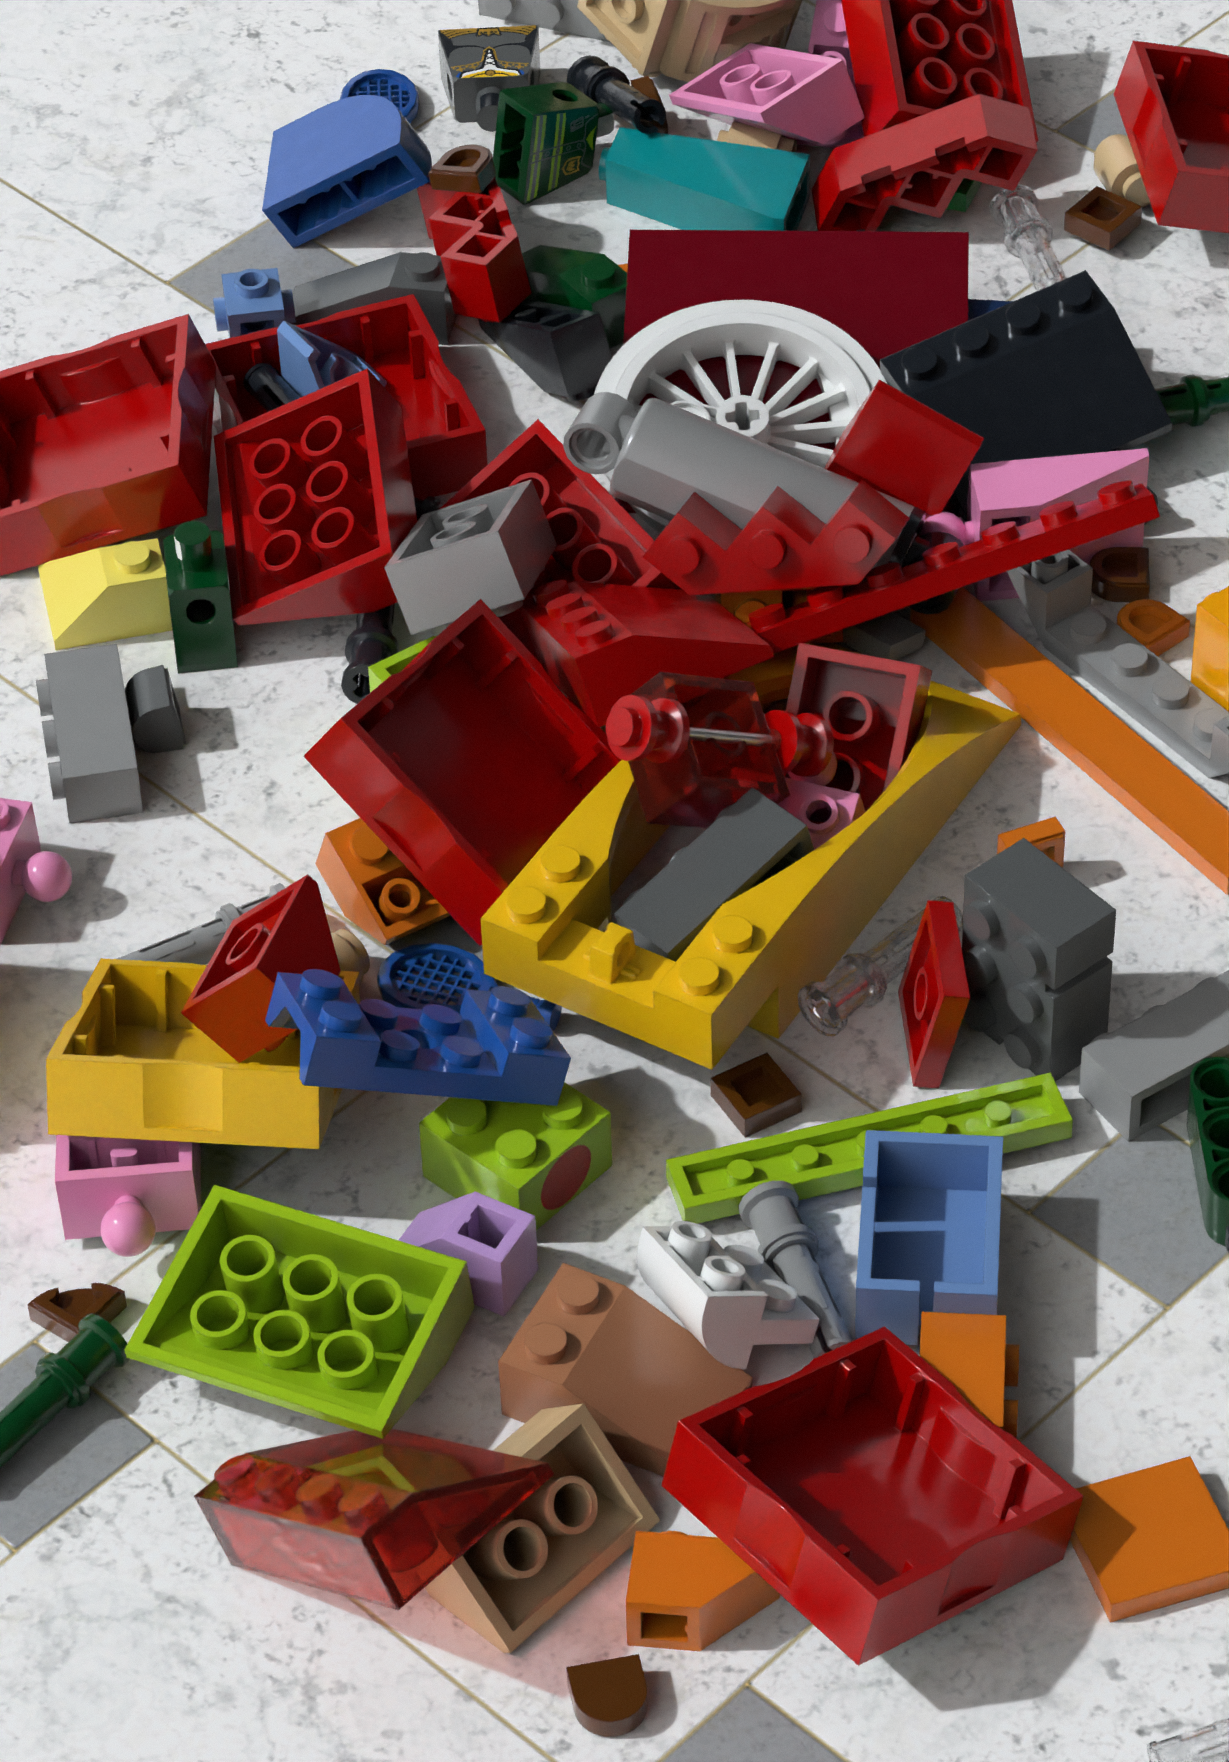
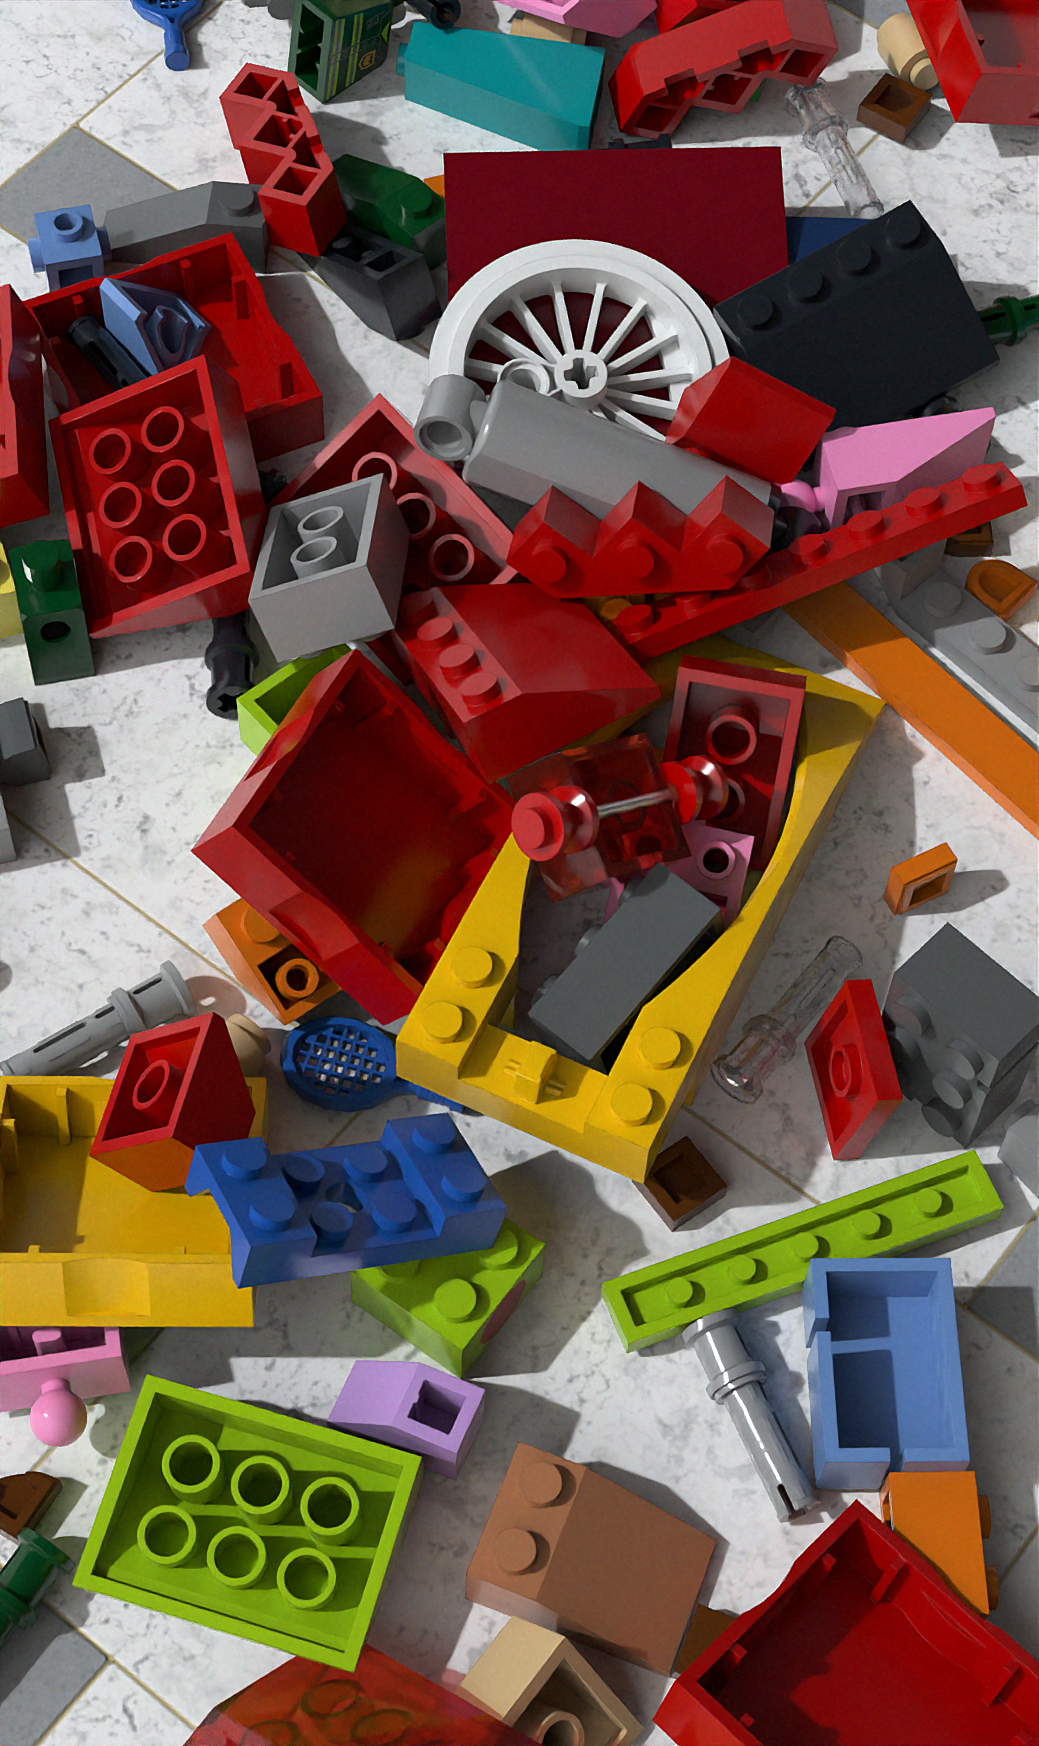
camera: 10 degrees left, 15 degrees up
(341, 166) = (141, 76): brick -> none
(463, 169) = (269, 86): reddish brown tile -> none
(720, 1293) = (685, 1458): white brick -> none

